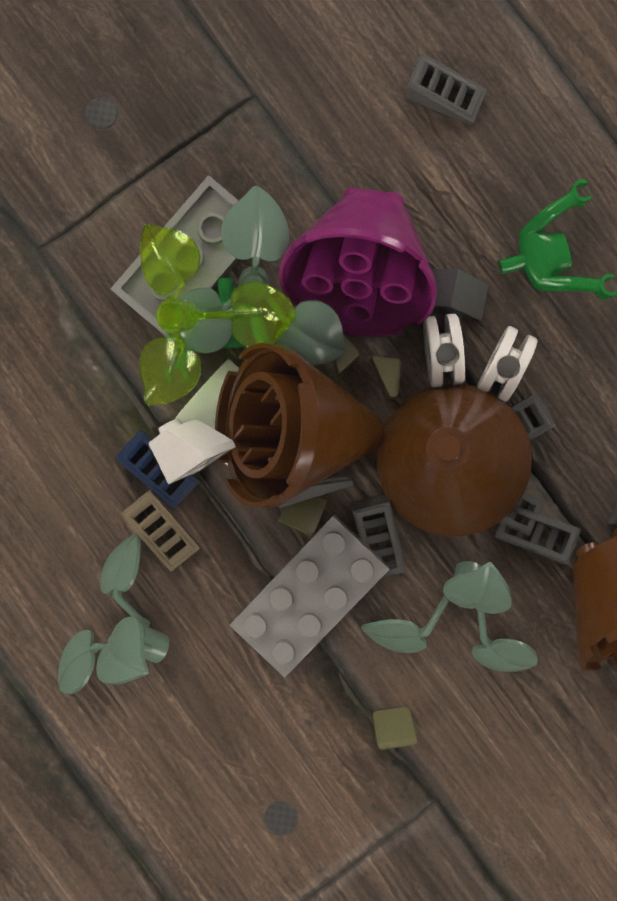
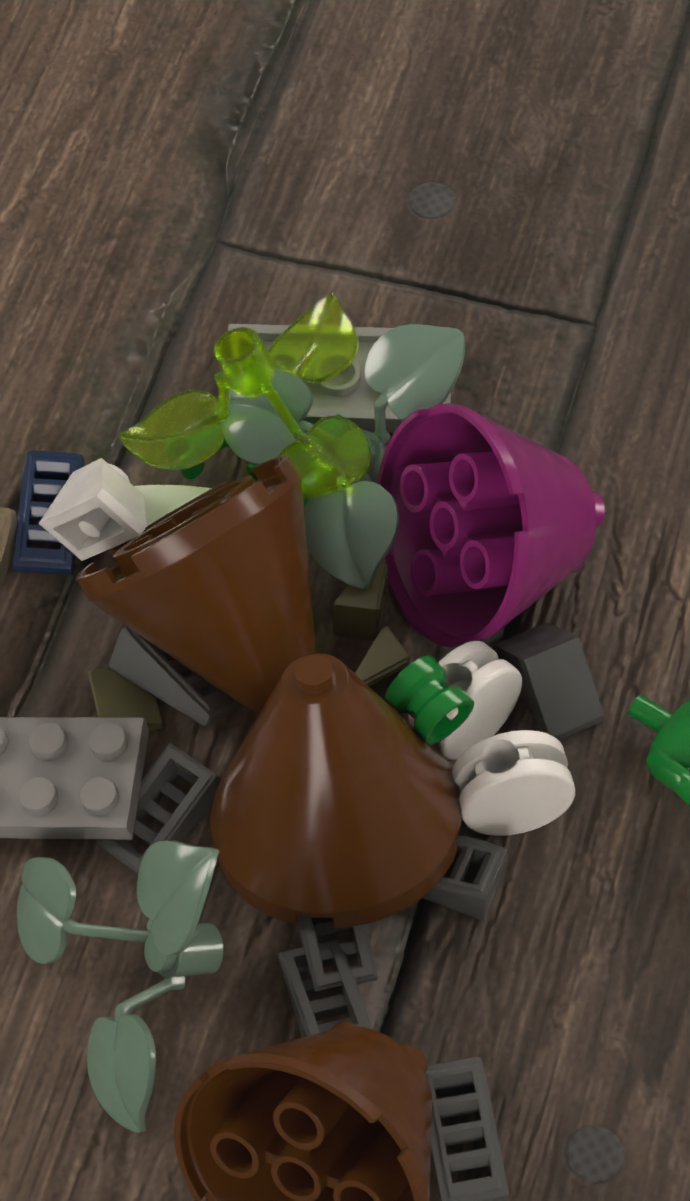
camera: 60 degrees right, 30 degrees down
(454, 377) = (429, 698): none -> green wheel

